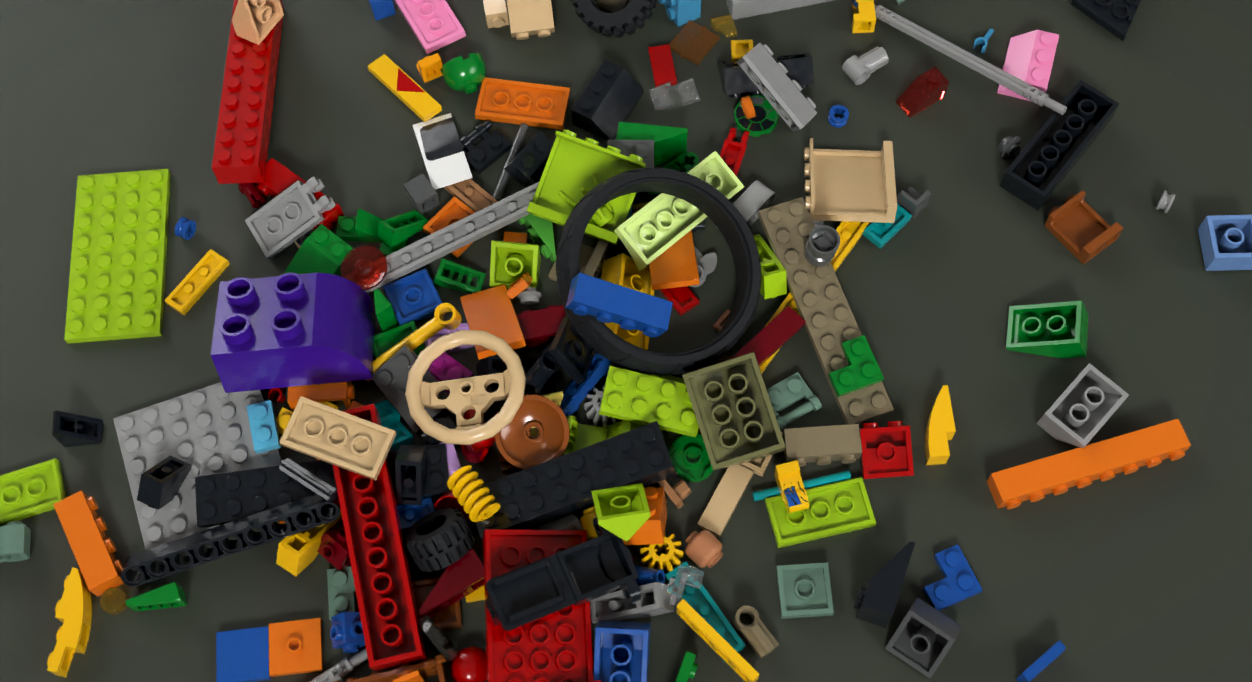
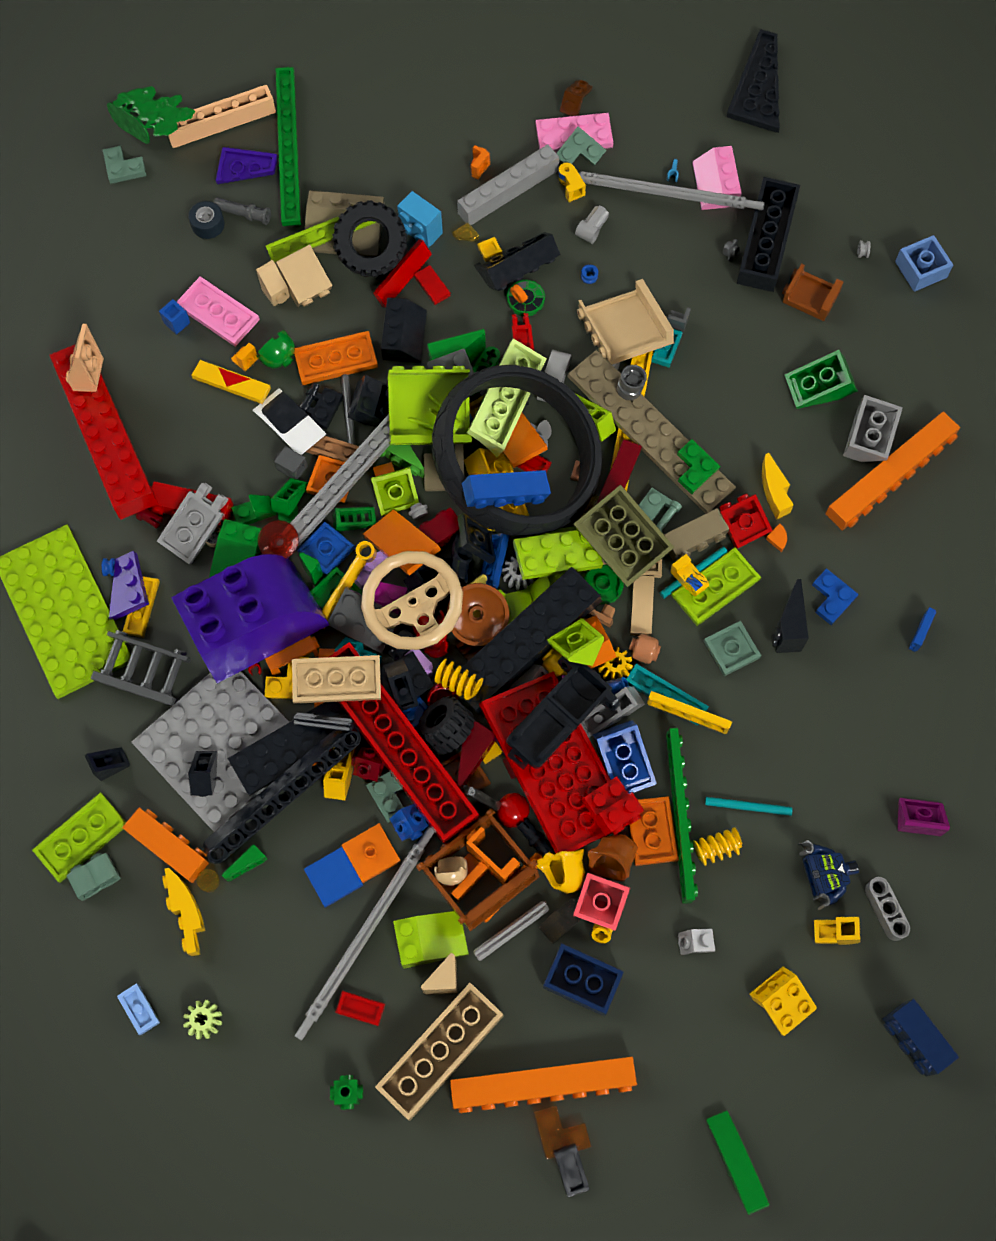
camera: 25 degrees left, 5 degrees up
(154, 368) = (125, 681): none -> dark grey fence
(193, 256) = (127, 587): none -> wing
(263, 426) = (260, 697): medium azure plate -> none
(519, 285) = (407, 505): orange tile -> none
(637, 41) = (403, 272): none -> red tile
(674, 96) = (450, 308): clear slope -> none
(685, 576) = (643, 674): clear bracket -> none
(694, 42) = (448, 256): clear orange piece -> none
(756, 633) = (712, 695): dark tan piece -> none
(777, 87) = (536, 269): light grey slope -> none
(917, 486) = (778, 537): none -> orange tile
(923, 92) = (647, 230): clear red slope -> none
(924, 638) = (833, 646): dark grey slope -> none

